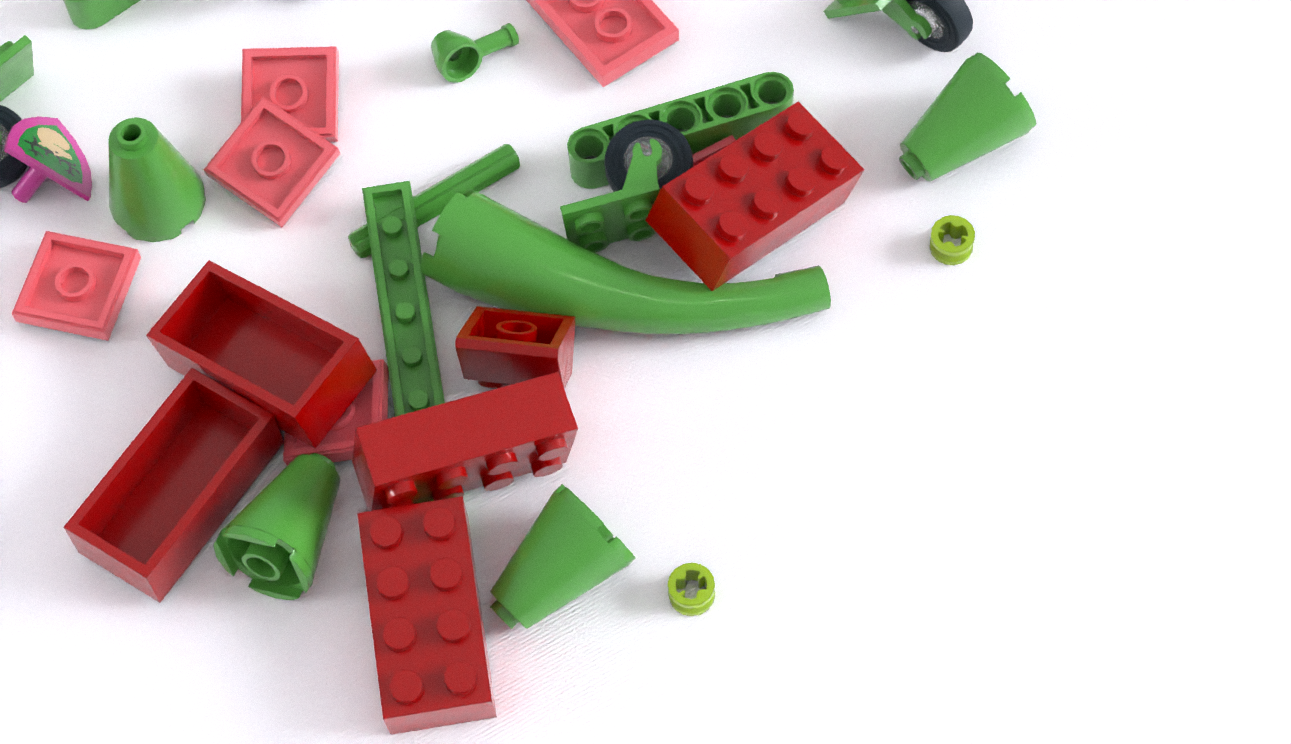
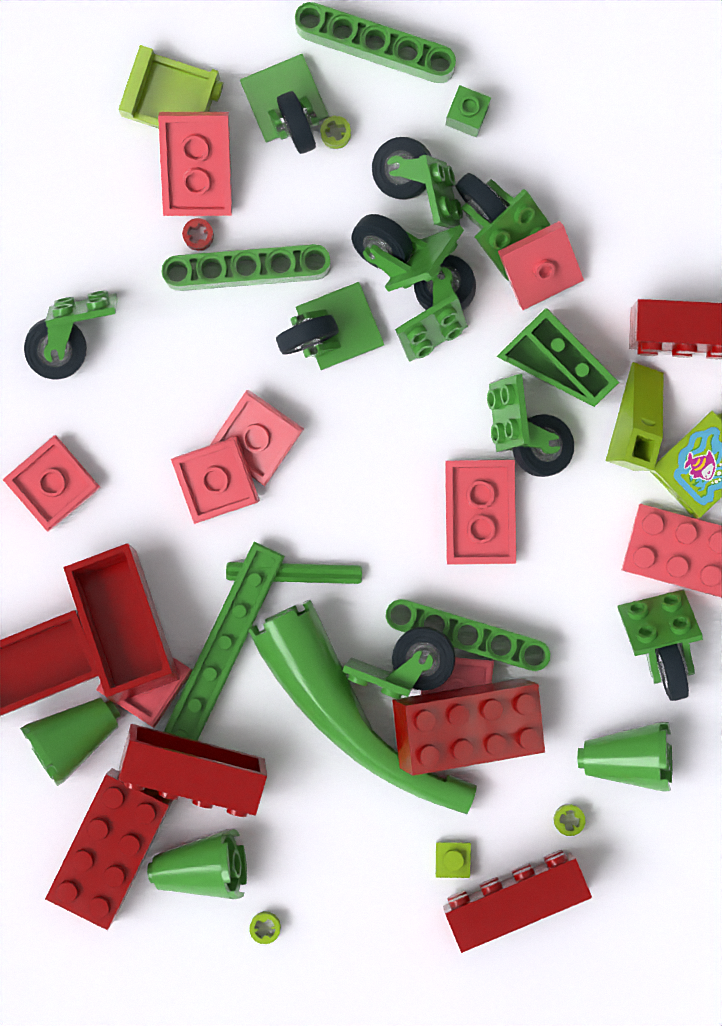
camera: 35 degrees right, 25 degrees up
(49, 153) = (87, 383): shield -> none
(151, 183) = (147, 456): bright green cone -> none
(460, 57) = (375, 480): bright green bar -> none
(515, 346) = (268, 720): red slope -> none
(855, 368) = (452, 859): none -> lime plate
(961, 340) = (516, 901): none -> red piece

